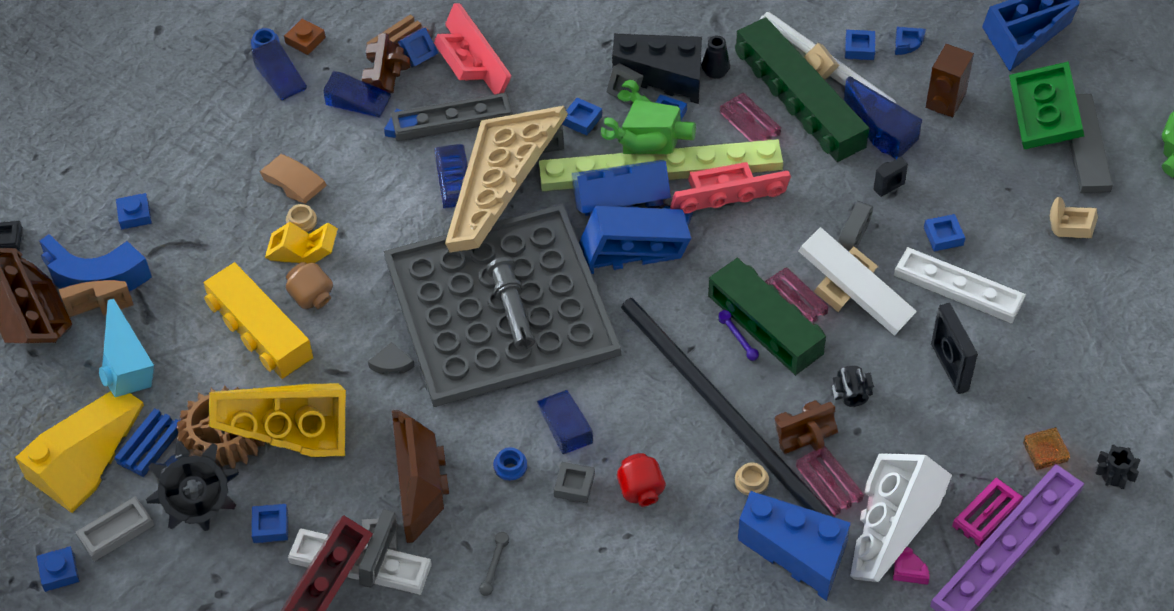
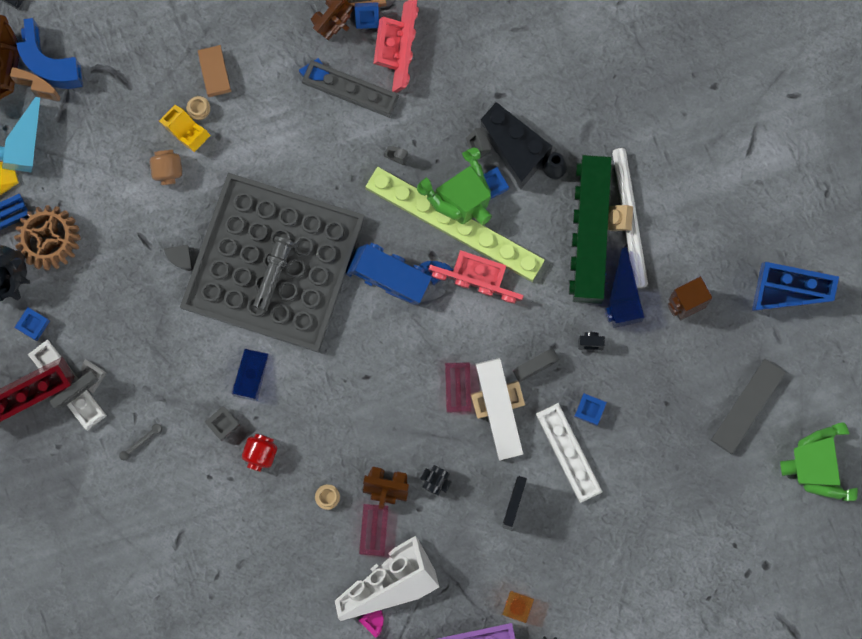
camera: 40 degrees right, 25 degrees up
(133, 211) = (102, 27): blue plate -> none
(257, 320) = (118, 171): yellow brick -> none
(290, 416) = (88, 262): yellow wedge -> none
(354, 95) = (300, 27): clear blue slope -> none
(418, 474) = (136, 352): reddish brown wedge -> none
(450, 158) = (312, 128): clear blue slope -> none
(497, 167) = (349, 154): tan wing -> none
(506, 457) = (190, 377): blue plate -> none
(582, 116) = (431, 149): blue plate -> none
(621, 186) = (405, 229): blue wedge -> none
(724, 408) = (350, 440): black piece -> none
(725, 318) = (404, 369): dark purple hinge -> none
(746, 122) = (542, 248): clear pink tile -> none
(767, 316) = (425, 390): dark green brick -> none
(795, 538) = (316, 559): blue wedge -> none
(860, 44) = (663, 220): blue plate -> none
(908, 39) = (703, 237): blue tile -> none
(971, 530) = (427, 623): dark pink tile -> none
(1046, 105) = (743, 361): green plate -> none
(1072, 221) = (680, 462): tan plate -> none

